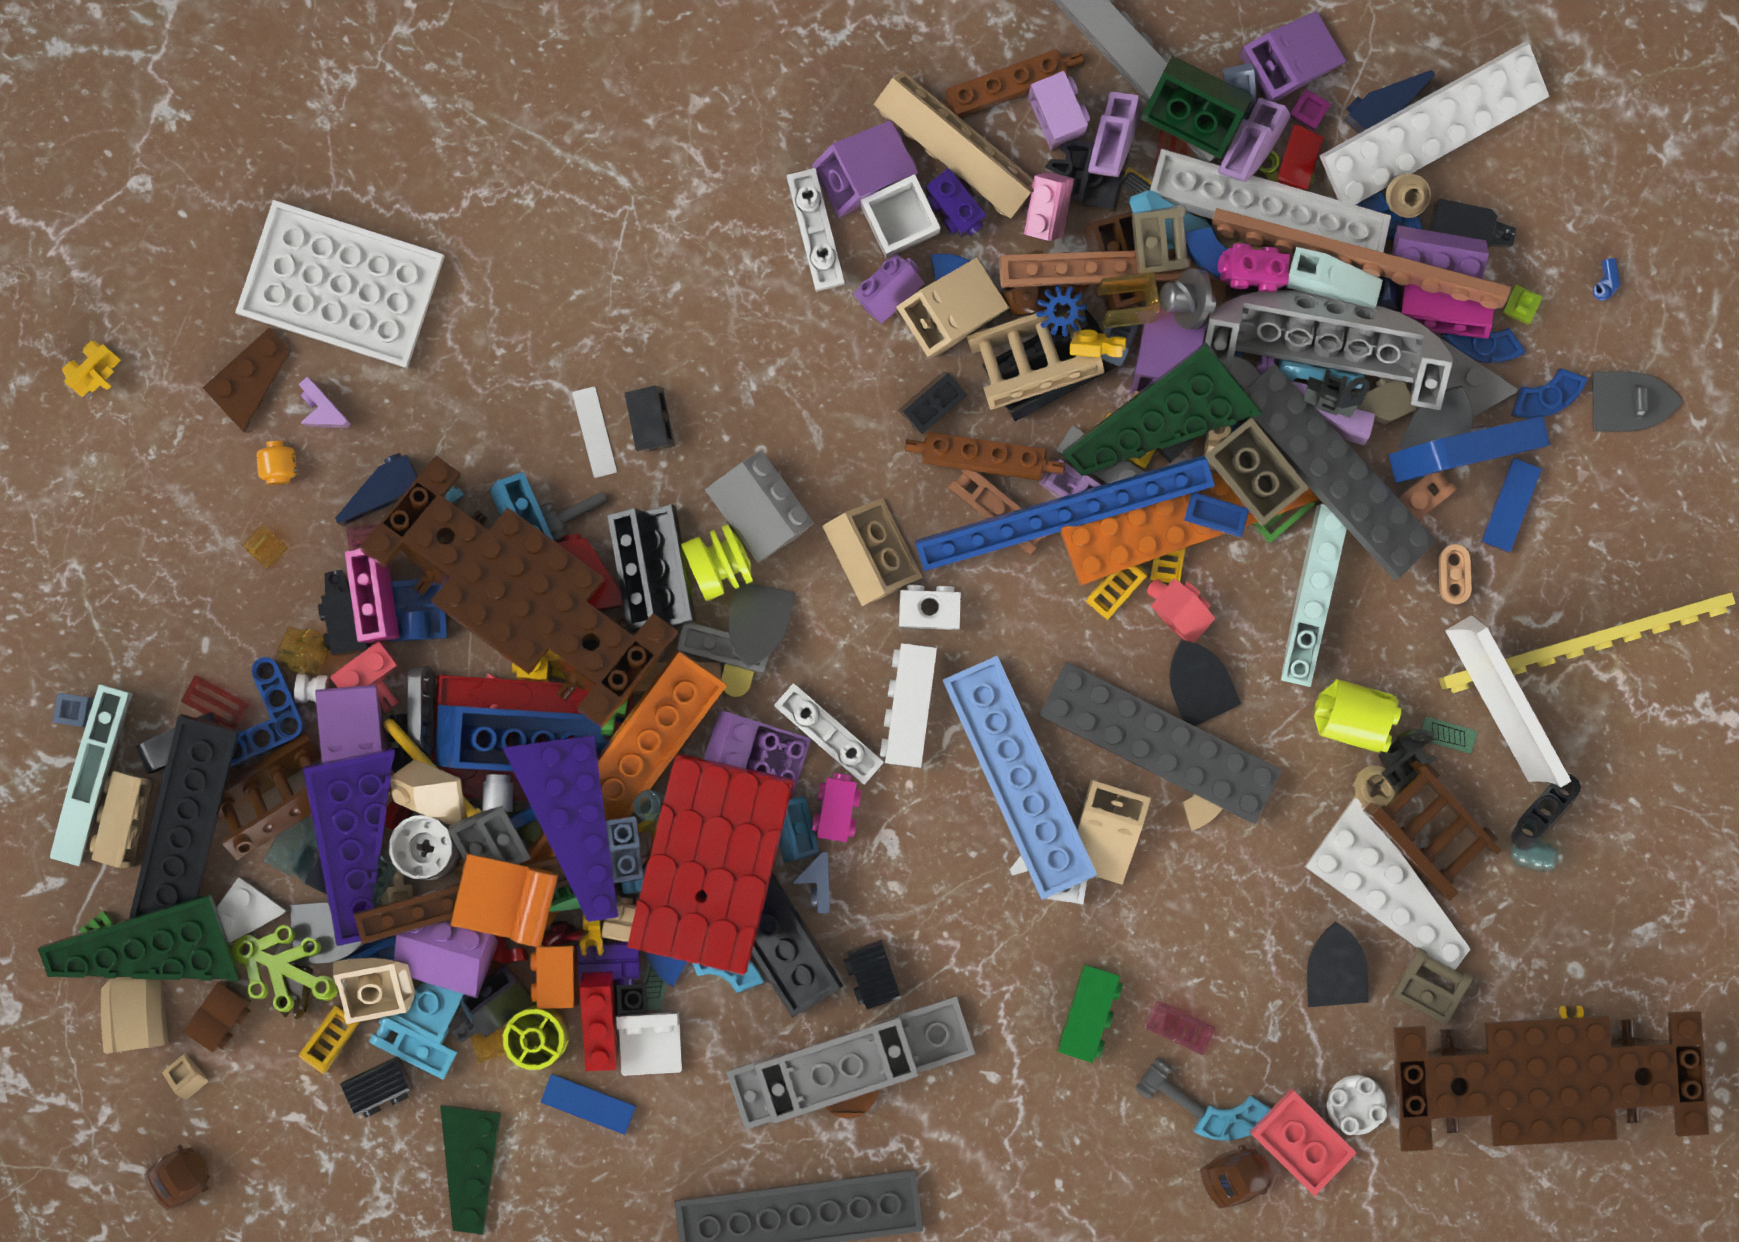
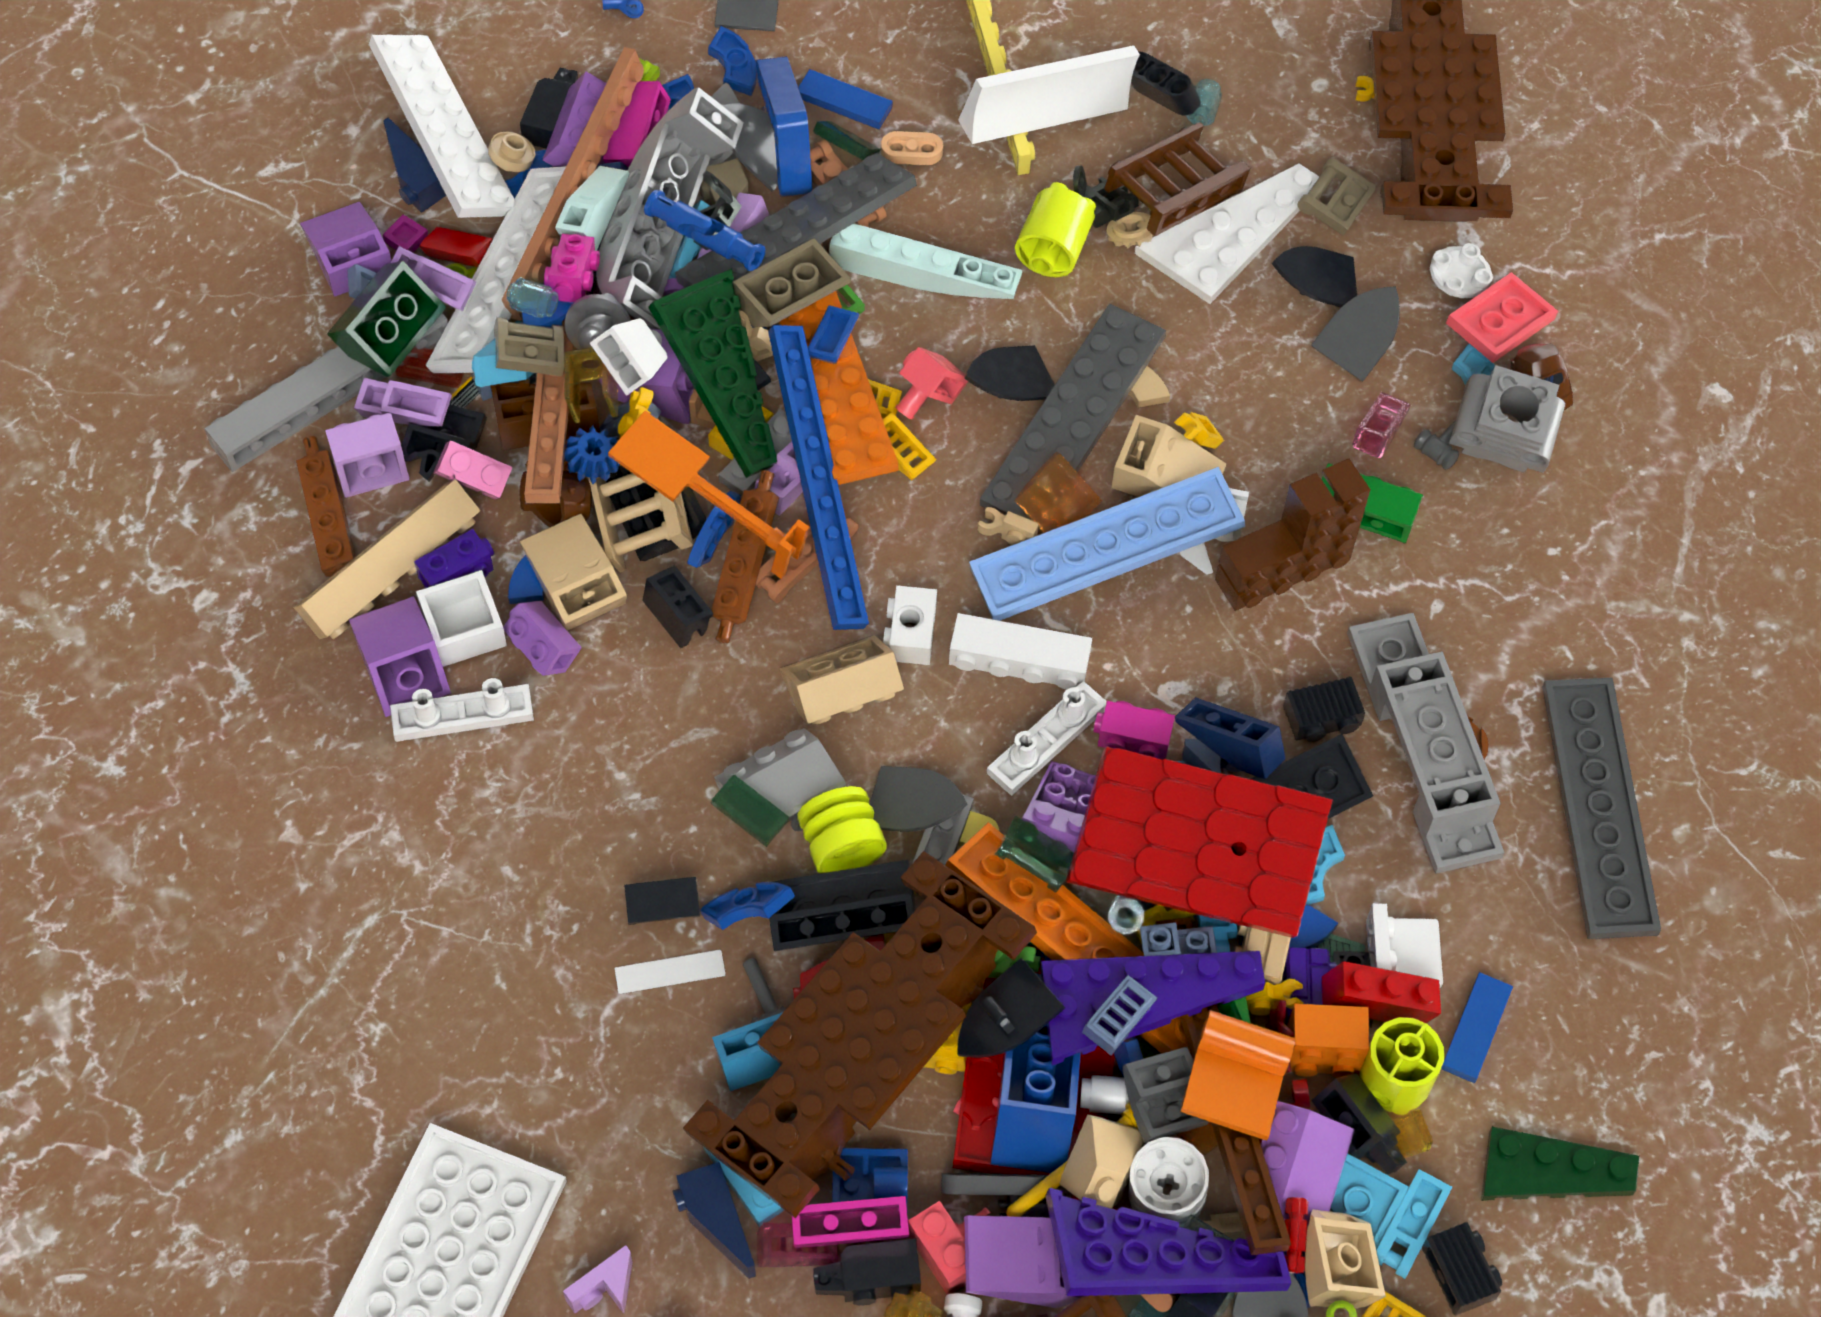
camera: 85 degrees left, 25 degrees down
(382, 950) = (1297, 1232): none -> red axle
(524, 802) = (1104, 1038): none -> sand blue slope
(545, 709) = (1007, 1013): none -> black shield
(650, 487) = (748, 902): none -> blue tile
(706, 729) = (1036, 852): none -> clear green plate
(721, 483) = (750, 810): none -> clear green tile
(825, 891) = (1236, 737): none -> dark blue slope
(1010, 427) = (711, 534): none -> blue tile
(1027, 946) = (1308, 539): none -> reddish brown piece
(1032, 697) = (1012, 526): none -> tan plate
(1047, 381) = (672, 464): none -> orange piece
(1065, 730) = (1057, 495): none -> clear orange slope
(1152, 858) = (1199, 430): none -> yellow plate
(1153, 333) = (630, 353): none -> white torso
(1186, 1117) = (1491, 436): none -> light grey piece
(1212, 235) = (532, 298): none -> clear light blue brick
(1275, 1008) = (1361, 331): none -> dark grey shield
(1314, 367) = (701, 228): none -> blue piece
(1450, 735) = (1077, 157): clear green sticker -> none
(1457, 511) = (845, 139): none -> clear green tile

